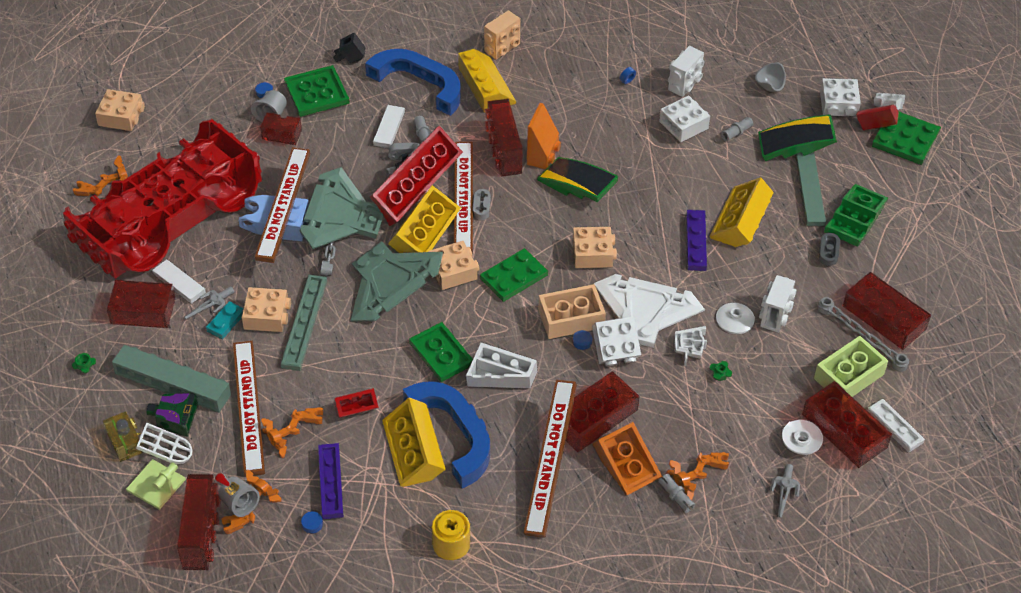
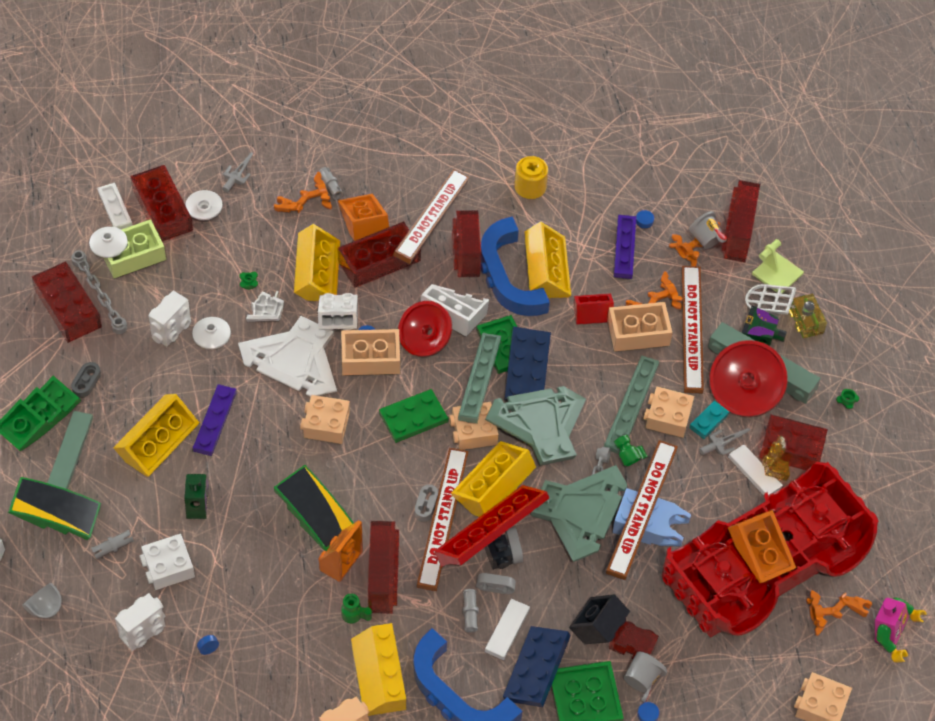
camera: 170 degrees left, 5 degrees up
(54, 173) = (891, 622): none -> torso
(158, 273) = (773, 464): none -> clear yellow bracket
(173, 174) = (762, 546): none -> orange slope
(187, 347) = (748, 378): none -> red dish
(299, 268) = (628, 453): none -> green piece
(304, 384) = (639, 326): none -> light nougat brick
(311, 126) = (599, 619): none -> black brick
(359, 100) = (537, 666): none -> dark blue plate
(413, 328) = (527, 361): none -> dark blue plate
(457, 297) = (479, 378): none -> sand green tile
(504, 436) = (466, 243): none -> clear red brick
(521, 112) = (352, 611): none -> green piece
(524, 341) = (418, 321): none -> red dish
(660, 399) = (316, 263): none -> yellow slope
(683, 161) = (196, 490): none -> dark green torso
(874, 356) = (107, 247): none -> white dish

